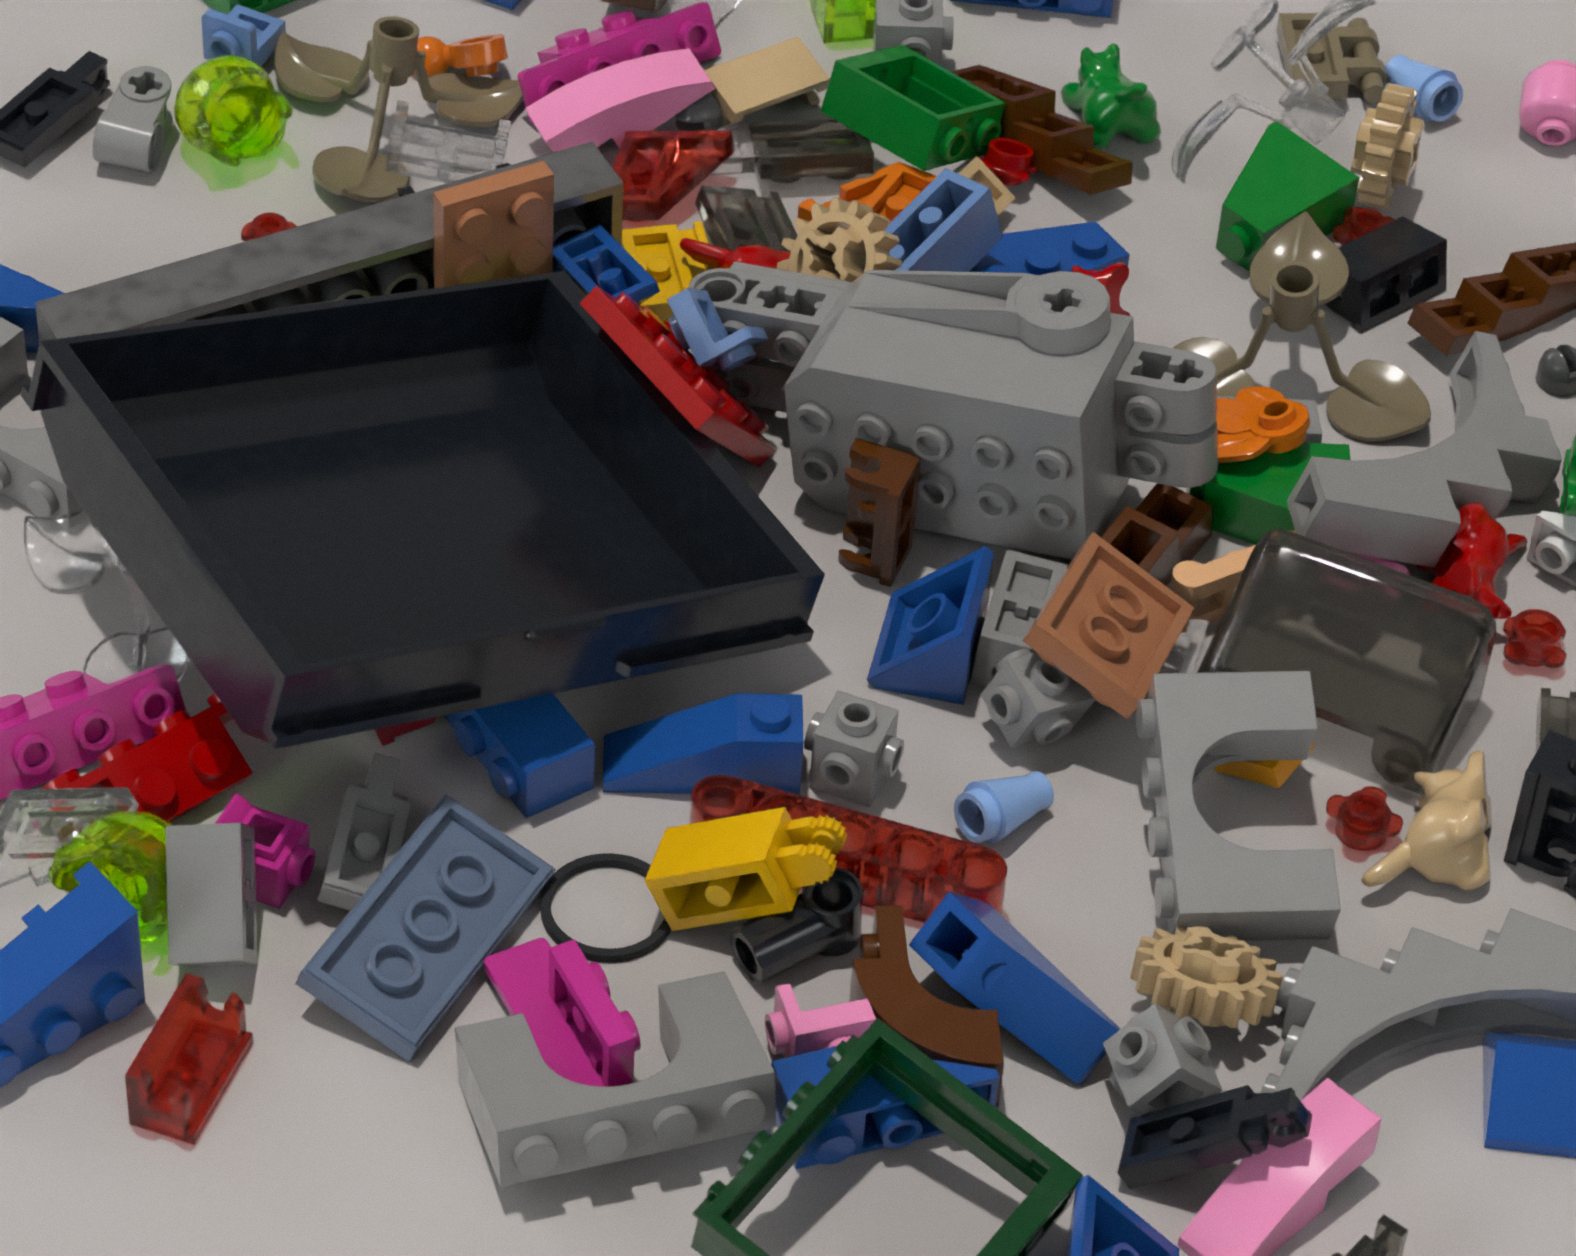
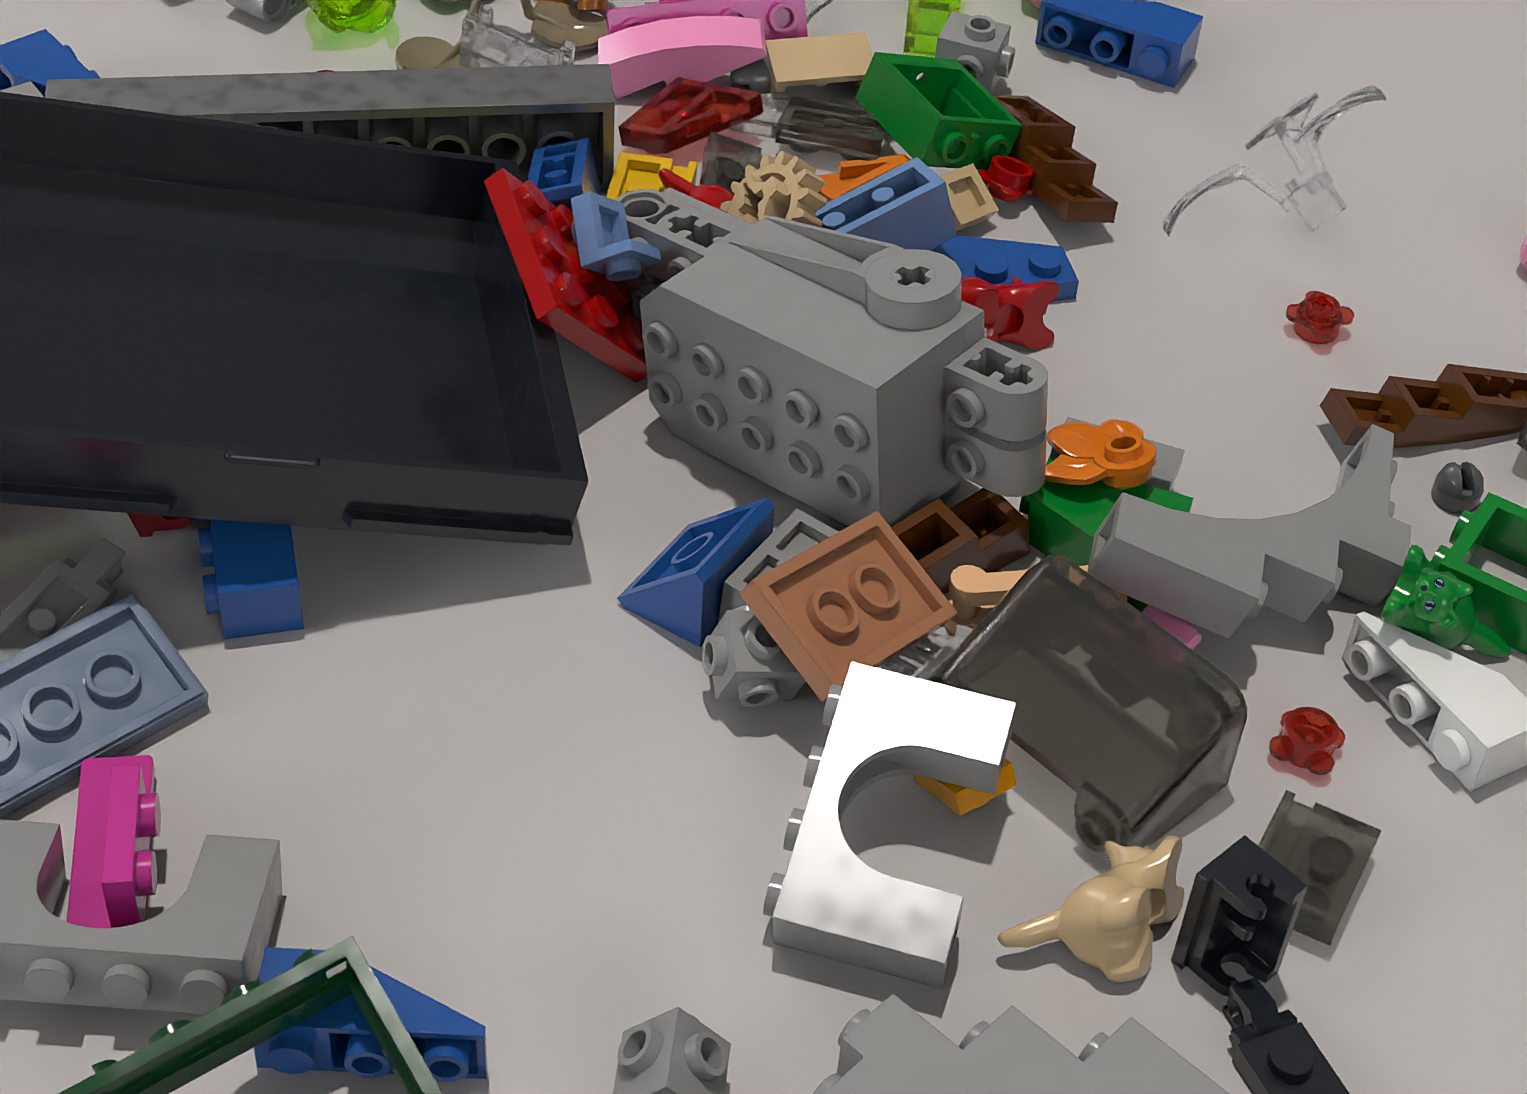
camera: 20 degrees right, 0 degrees up
(494, 227) = (477, 108): nougat plate -> none
(591, 953) = (248, 793): black piece -> none
(732, 736) = (426, 621): blue slope -> none
(740, 866) = (356, 739): yellow hinge -> none
(807, 1031) = (375, 930): bright pink bracket -> none
(822, 922) = (421, 814): black piece -> none
(853, 748) = (552, 657): light grey brick -> none
(880, 509) = (706, 440): reddish brown hinge -> none
(889, 858) = (489, 761): clear red beam -> none
(905, 1006) = (442, 951): reddish brown arch -> none
(999, 806) = (669, 753): light blue cone -> none
(1006, 973) = (566, 936): blue slope -> none
(1111, 99) = (1130, 150): green animal -> none
(1206, 976) = (771, 993): tan gear -> none
(1278, 185) = (1246, 269): green slope -> none
(1296, 274) = (1226, 327): dark tan plant -> none
(1327, 58) = (1349, 147): dark tan plate -> none
(1363, 818) = (1032, 886): clear red plate -> none
(1387, 146) = (1367, 241): tan gear -> none
(1390, 272) = (1317, 354): black hinge -> none
(1436, 88) = (1438, 207): light blue cone -> none
(1476, 558) = (1271, 643): red animal -> none

